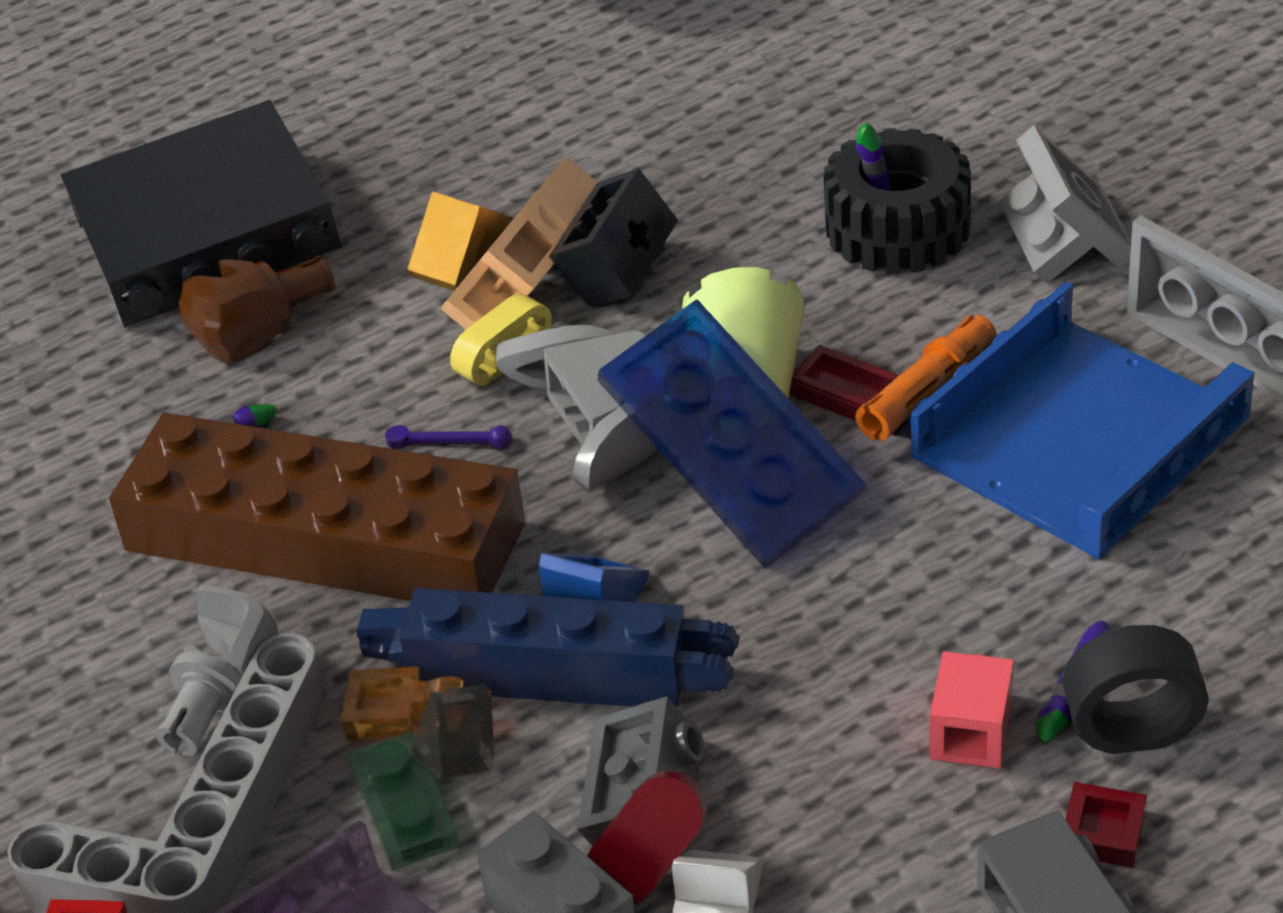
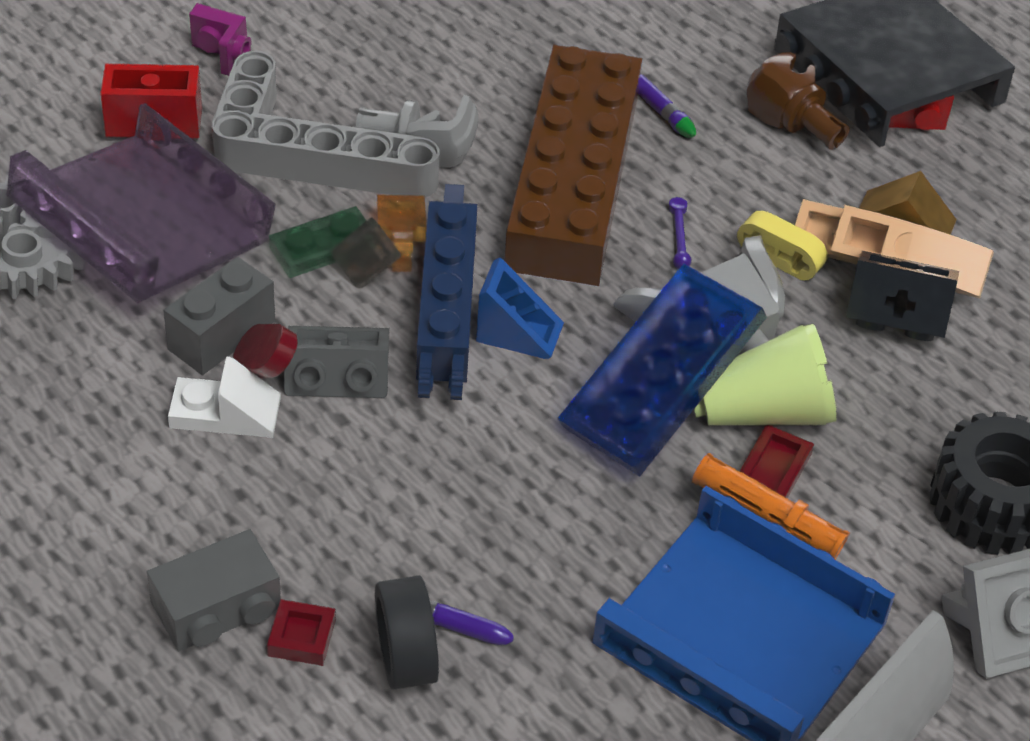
camera: 75 degrees right, 5 degrees up
(871, 149) = (1012, 429): piece -> none
(971, 709) = (402, 540): coral brick -> none

